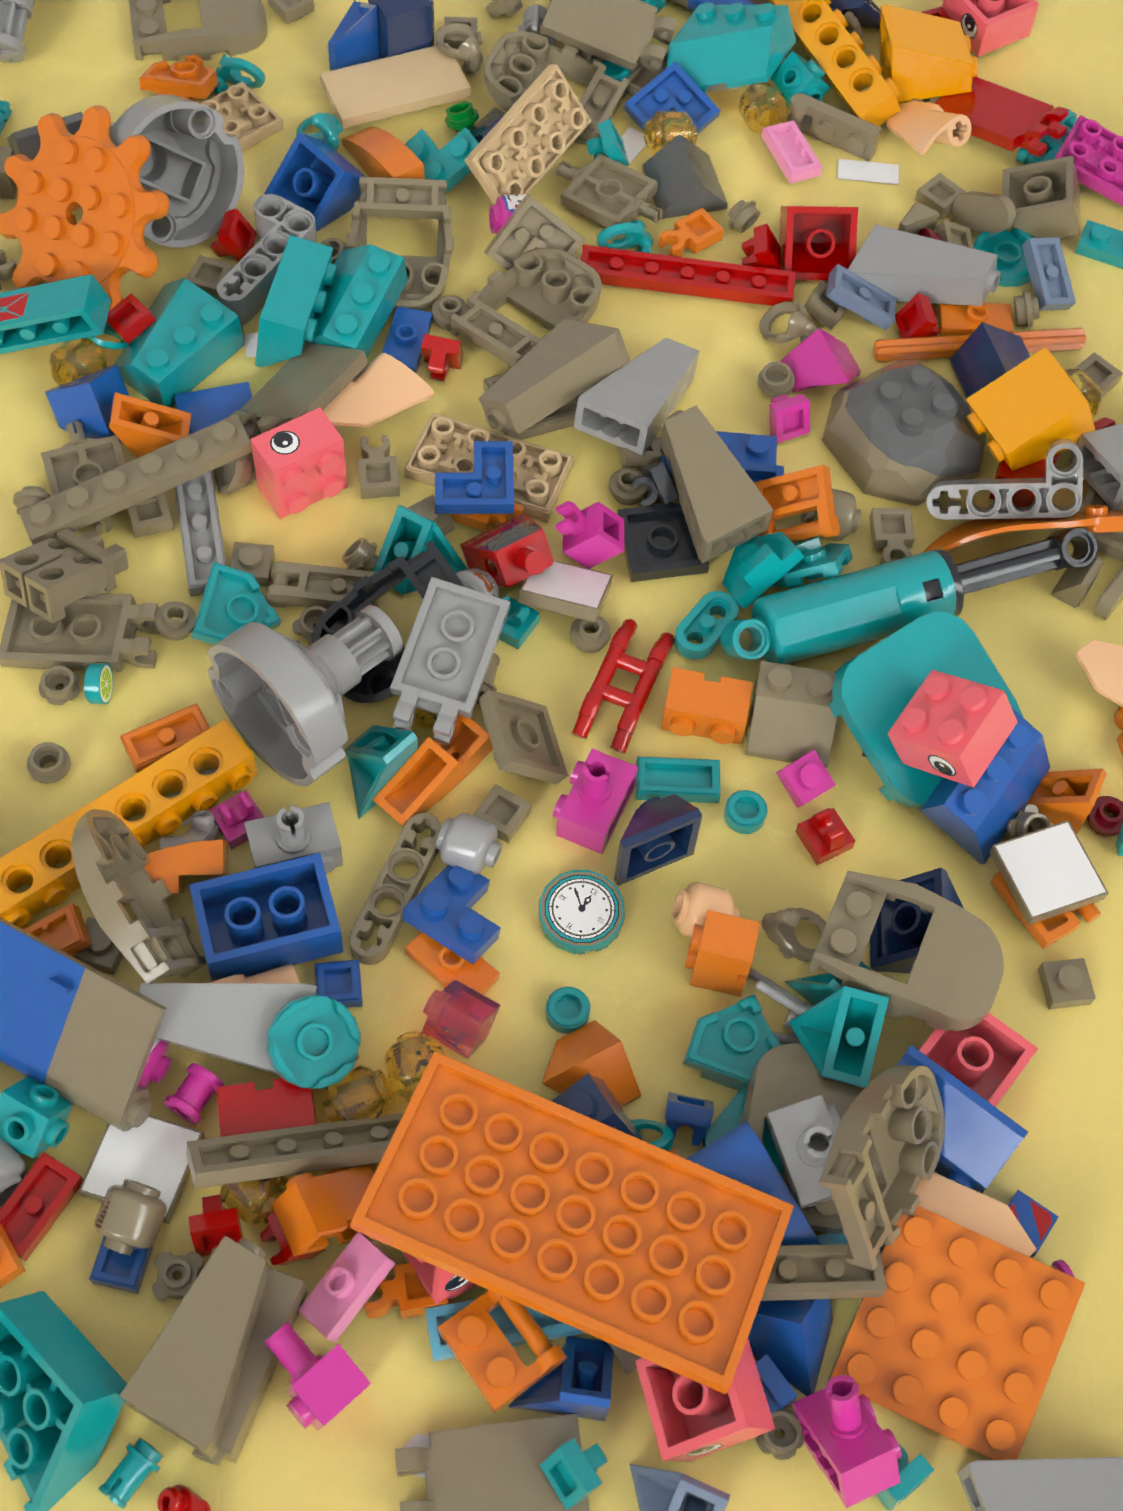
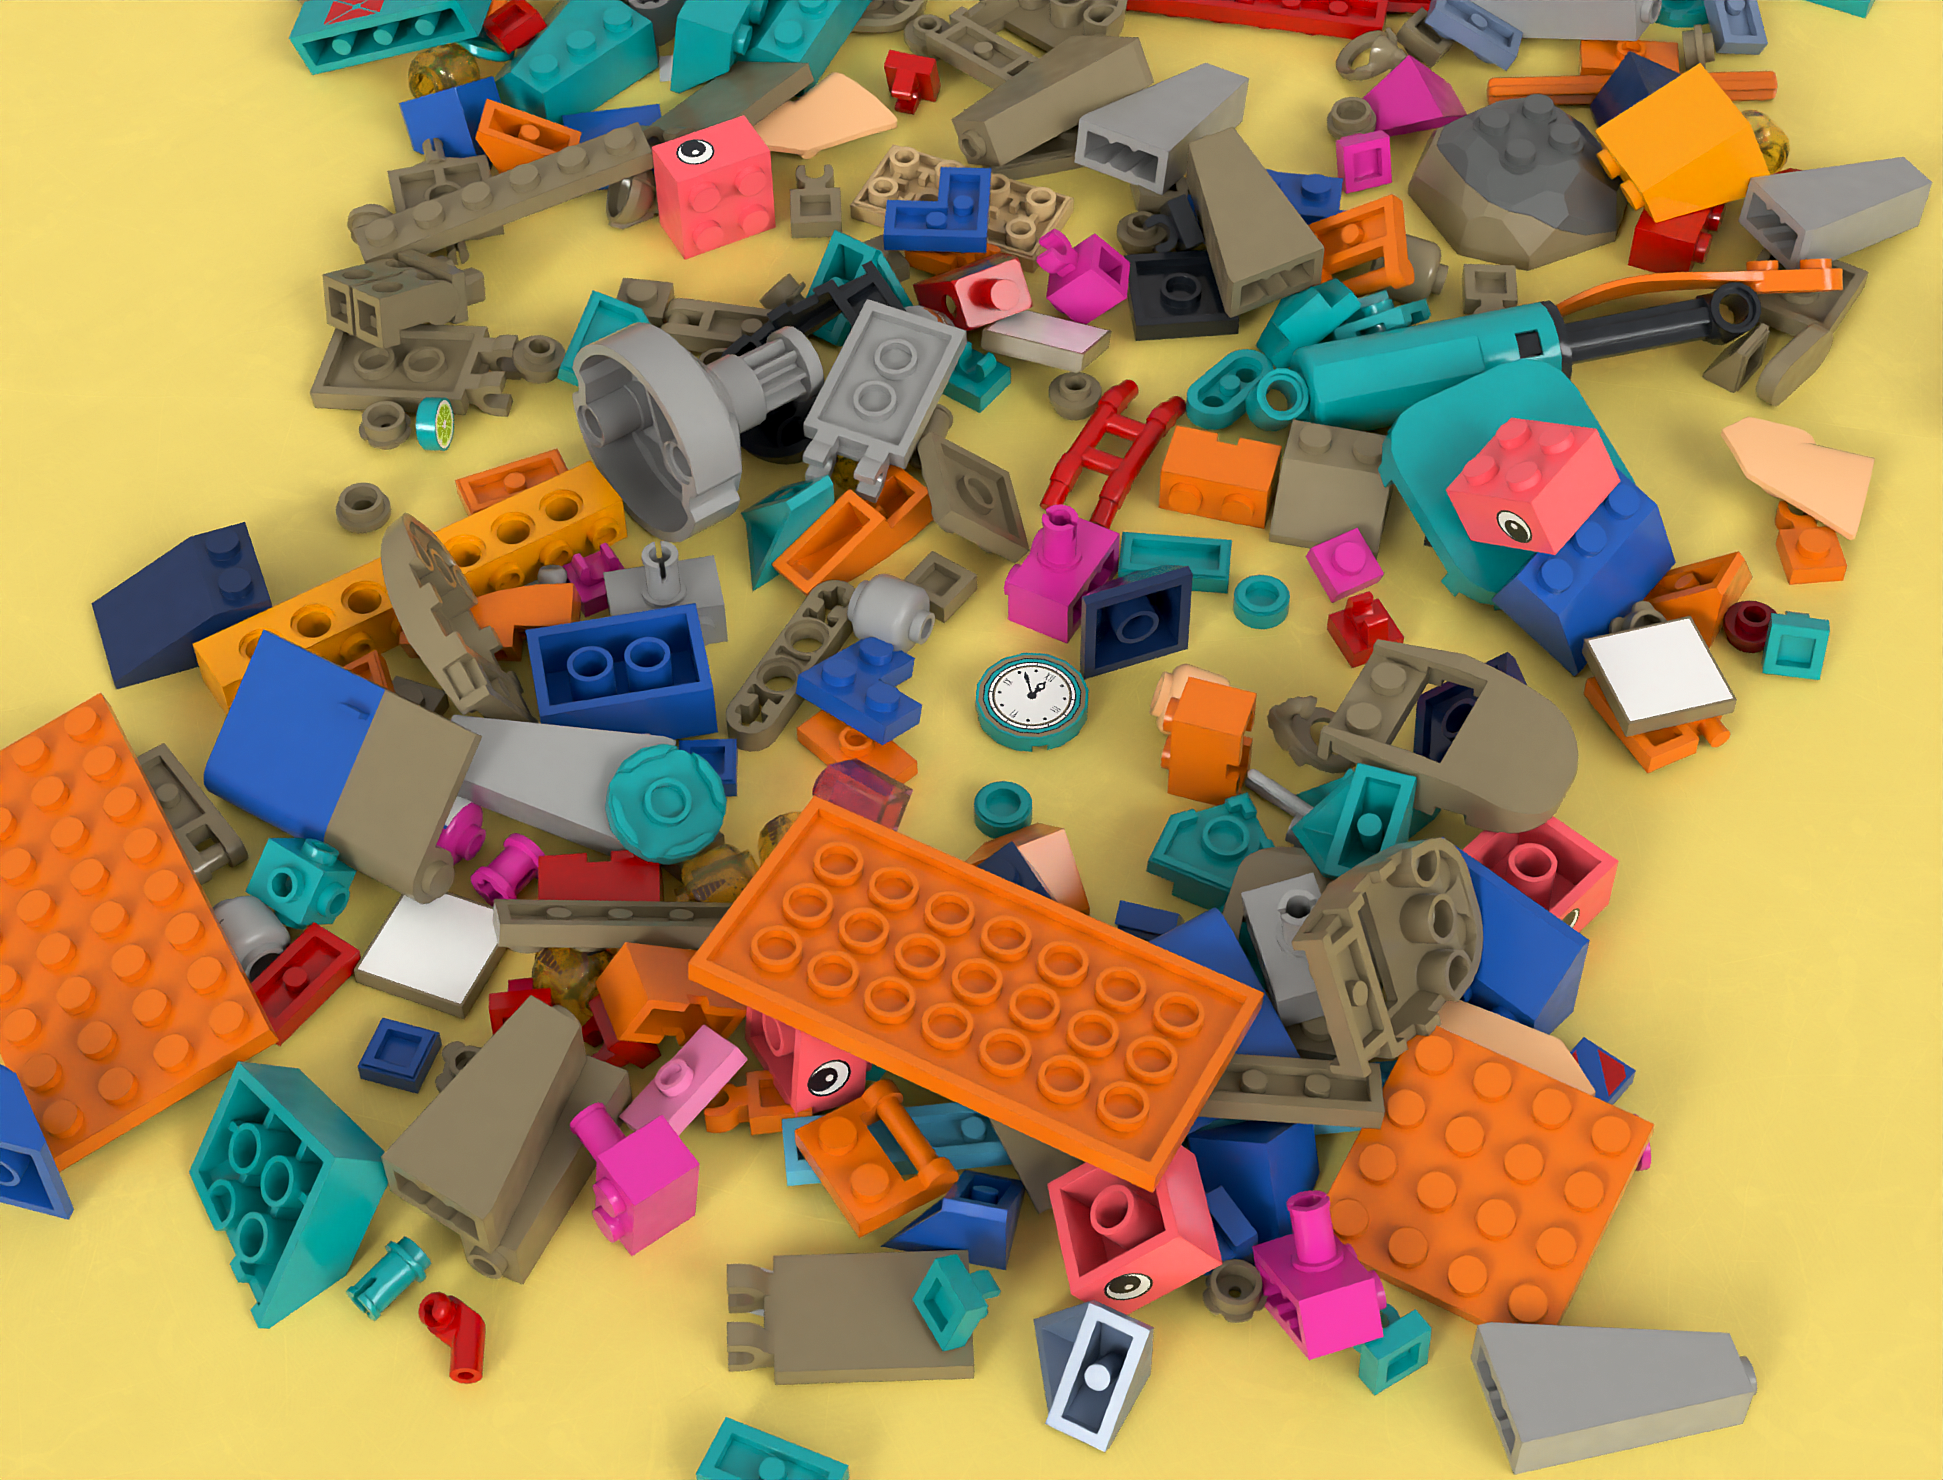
camera: 10 degrees right, 10 degrees down
(130, 1216) = (415, 990): dark tan head -> none
(151, 516) = (519, 244): dark tan plate -> none
(199, 530) = (579, 256): light grey tile -> none
(407, 335) = (867, 56): blue plate -> none
(917, 318) = (1548, 53): red tile -> none
(1004, 489) = (1641, 241): light grey beam -> none
(1066, 983) = (1675, 813): dark tan plate -> none
(1101, 372) = (1795, 122): dark tan plate -> none

